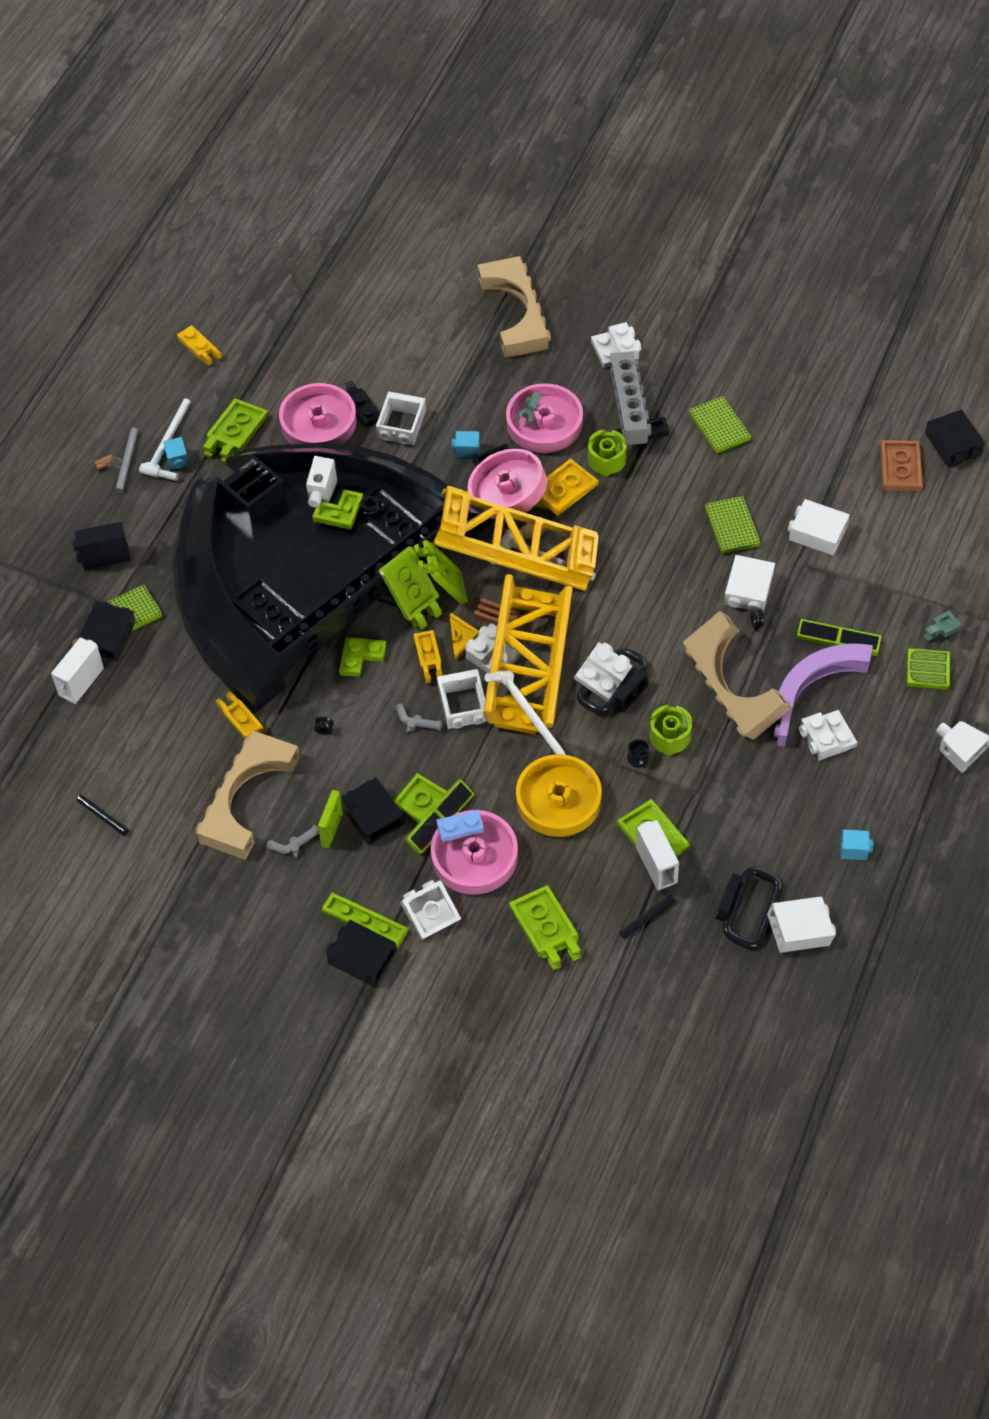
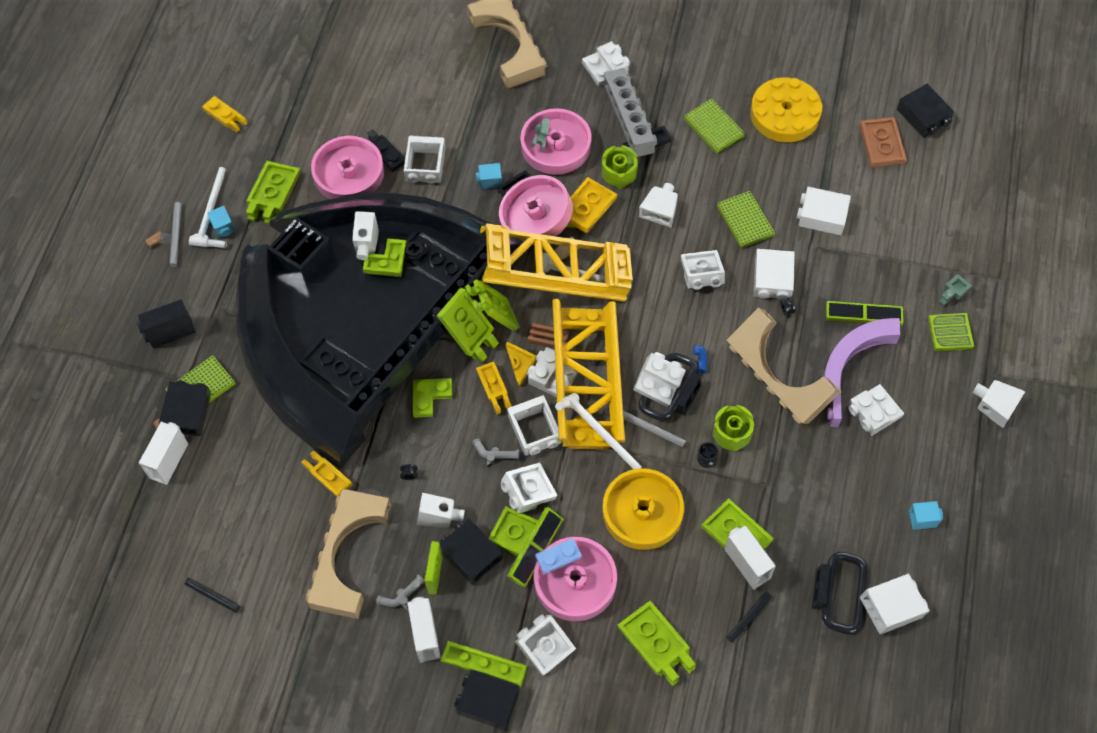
camera: 10 degrees left, 5 degrees up
(309, 875) = (423, 629): none -> white brick
(345, 766) = (437, 511): none -> white torso
(443, 758) = (527, 487): none -> white plate
(587, 720) = (654, 429): none -> light grey bar
(642, 498) = (660, 205): none -> white torso
(654, 659) = (702, 358): none -> blue arm
(674, 569) = (703, 269): none -> white plate
(801, 434) = (787, 122): none -> yellow piece

